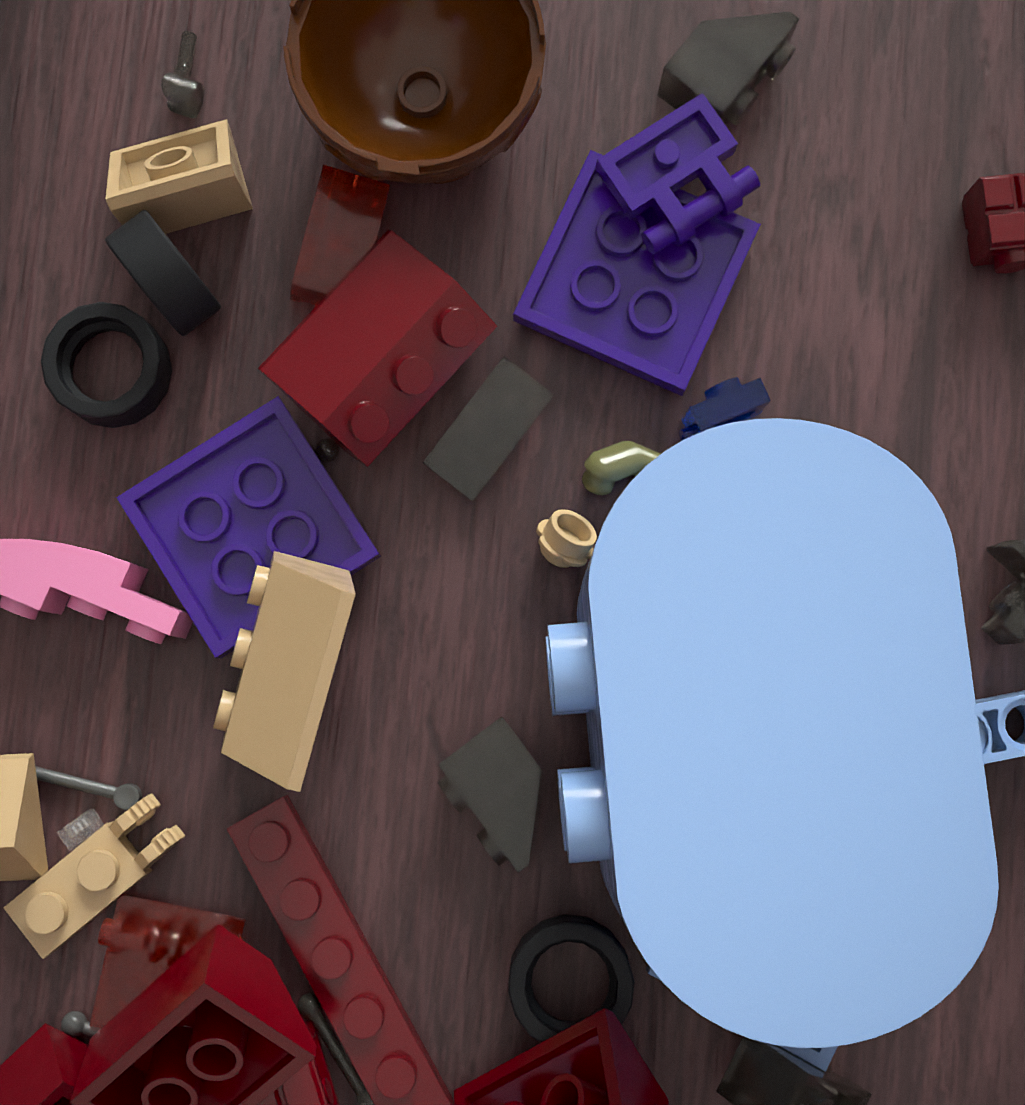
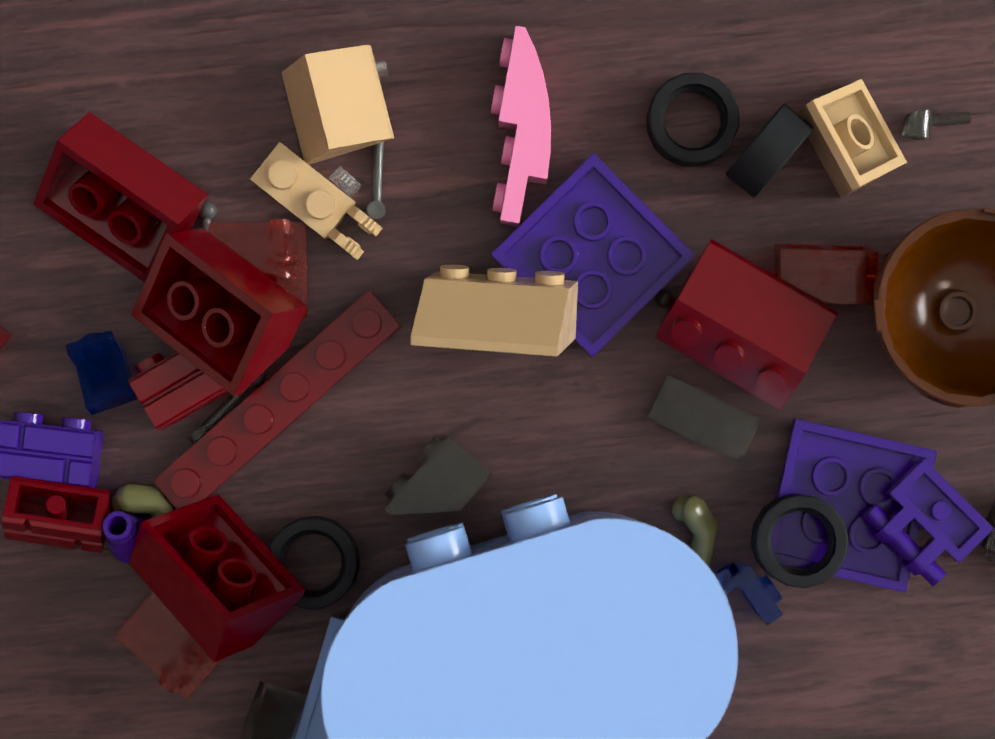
camera: 75 degrees right, 5 degrees up
(566, 539) = (633, 494): tan plate -> none
(686, 291) = (836, 544): none -> black tyre

